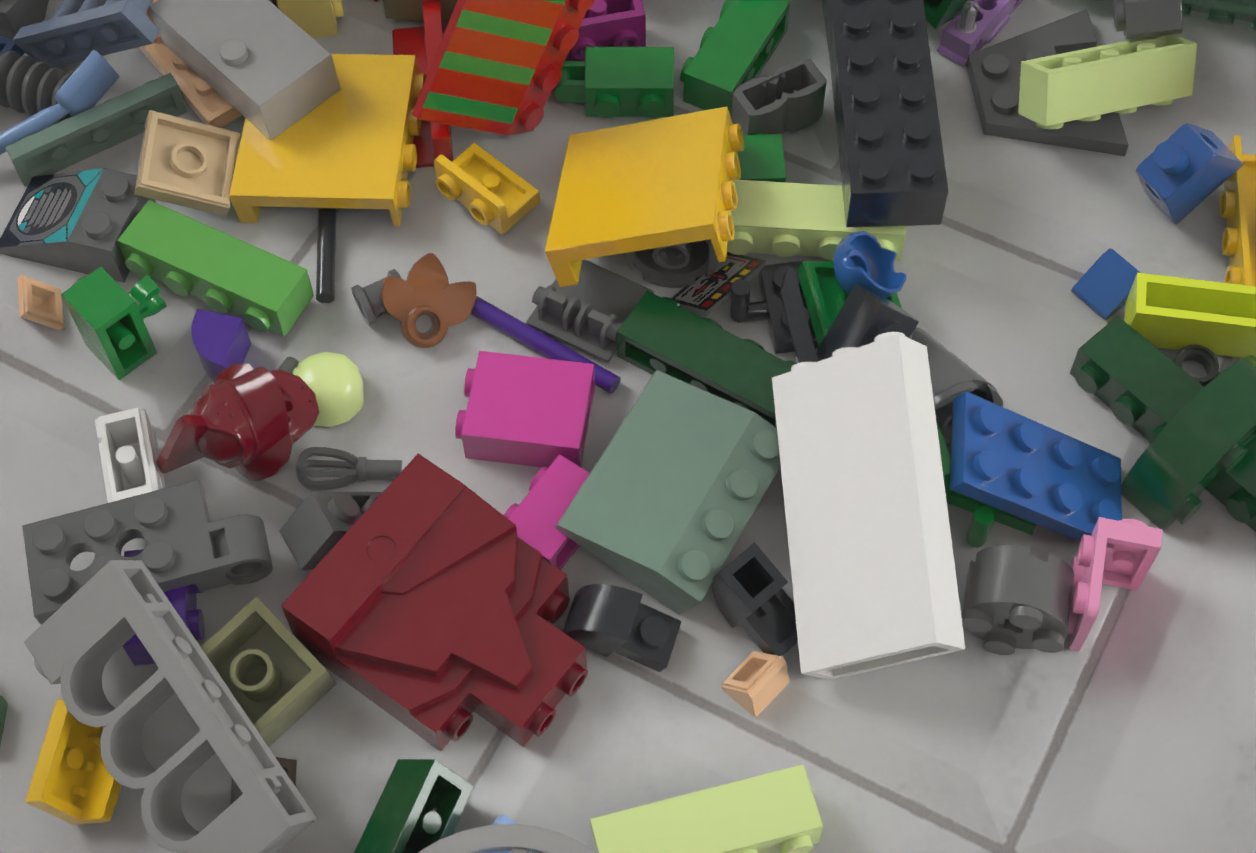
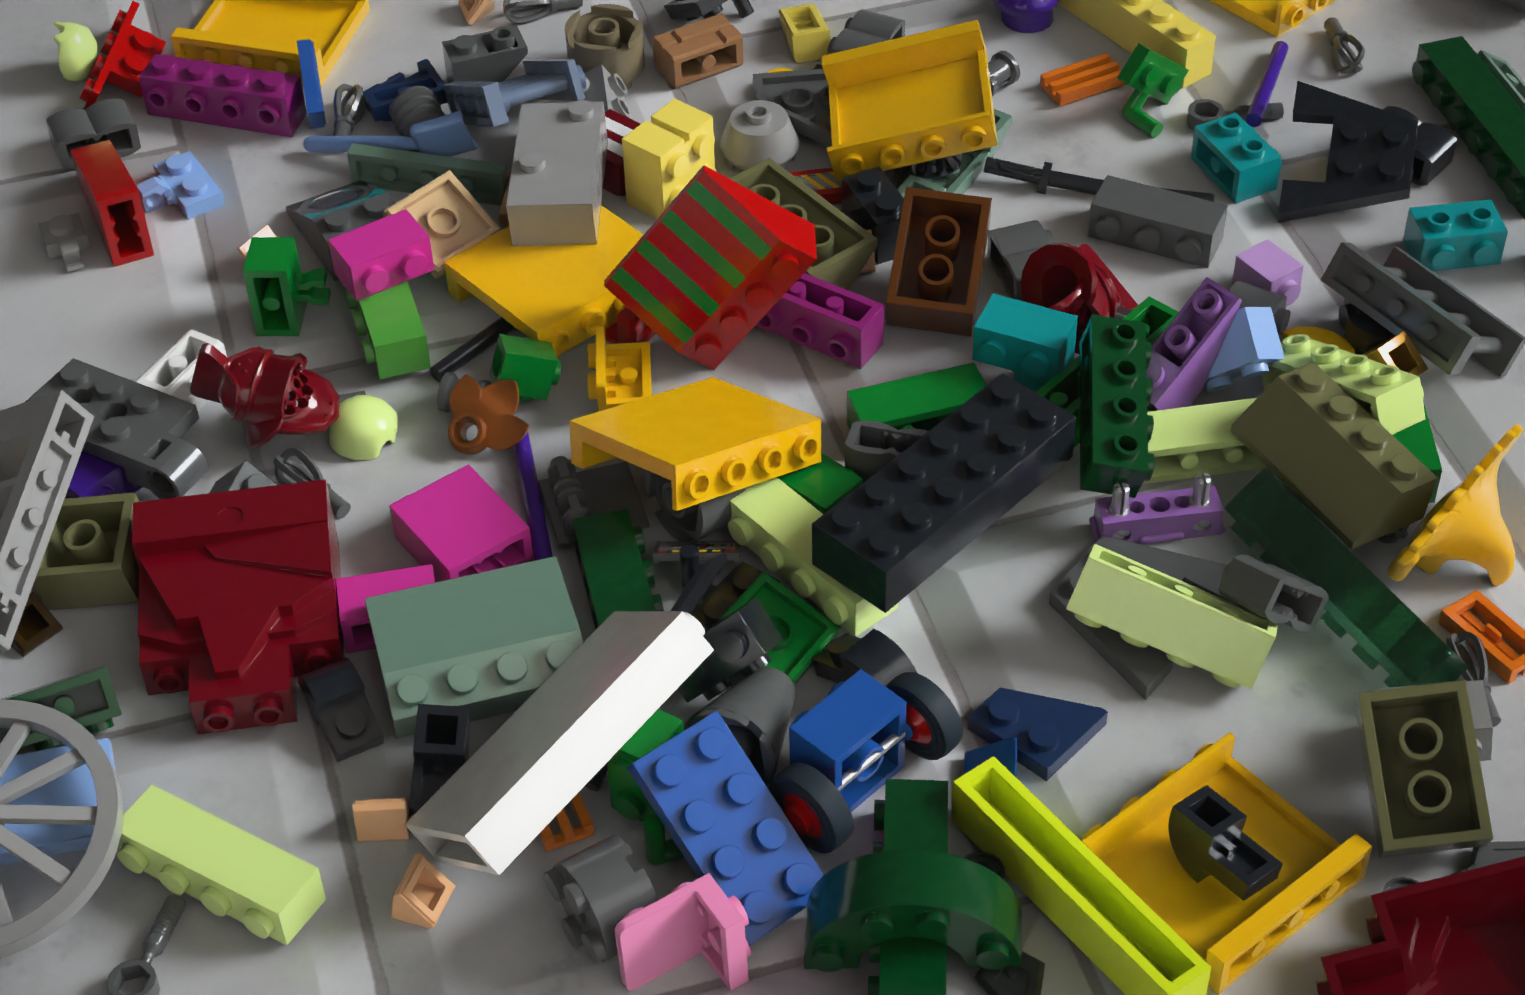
camera: 45 degrees right, 15 degrees down
(191, 226) = (381, 254): none -> dark pink piece
(219, 341) = (330, 350): dark purple brick -> none
(407, 235) = (528, 363): none -> green brick
(621, 82) = (806, 373): green brick -> none
(862, 715) = (421, 894): none -> light nougat slope
(864, 262) = (796, 601): blue hair -> none
(957, 274) = (872, 653): none -> black brick
(1031, 343) = (853, 745): none -> brick
(1091, 228) = (1045, 727): none -> dark blue wing
(1186, 170) = (1144, 721): blue torso -> none

